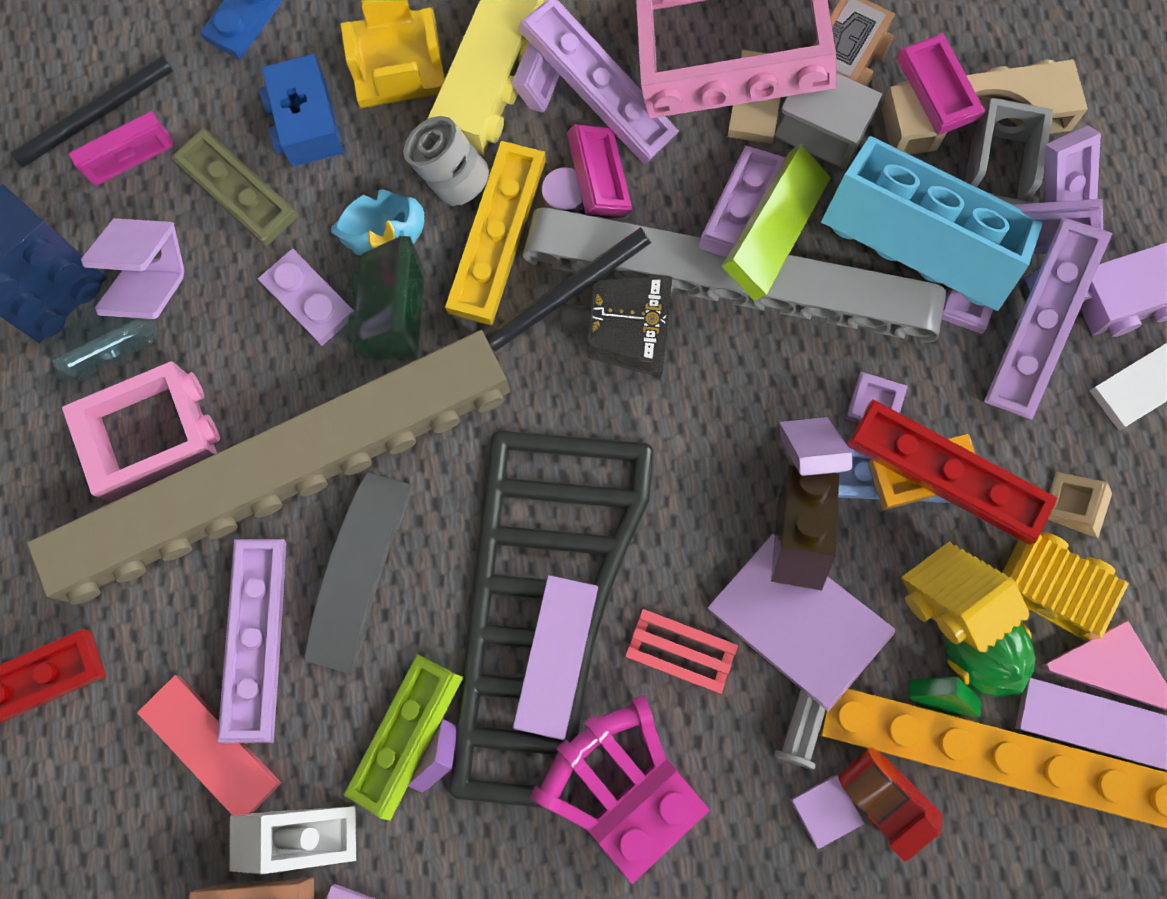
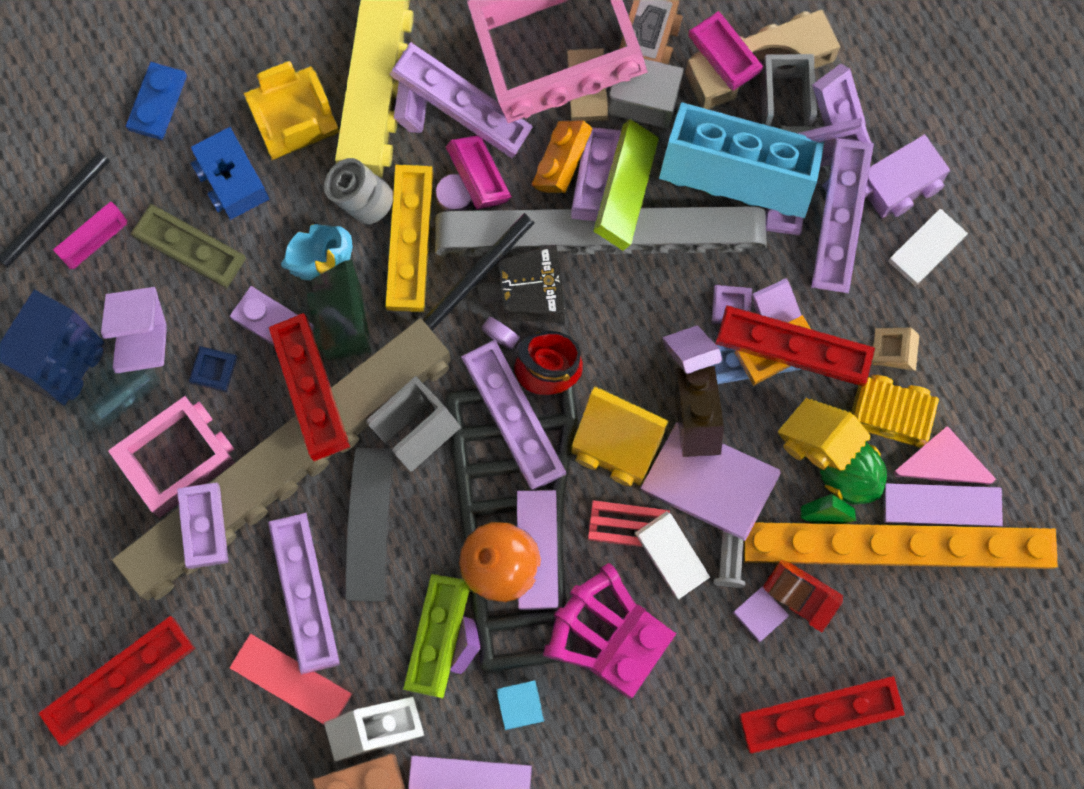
camera: 20 degrees left, 0 degrees up
(142, 527) = (202, 525): none -> lavender plate
(222, 338) = (212, 369): none -> dark blue tile
(320, 386) = (309, 387): none -> red plate
(429, 440) = (402, 410): none -> light grey piece
(486, 853) = (520, 705): none -> medium azure slope
(502, 662) = (499, 561): none -> orange cylinder
(568, 479) = (513, 415): none -> lavender tile
(577, 371) = (500, 333): none -> lavender tile
(627, 421) = (548, 363): none -> red piece
(692, 536) = (617, 437): none -> yellow slope
(705, 173) = (561, 156): none -> light orange plate
(728, 705) = (672, 555): none -> white tile
(937, 409) = (777, 302): none -> lavender slope

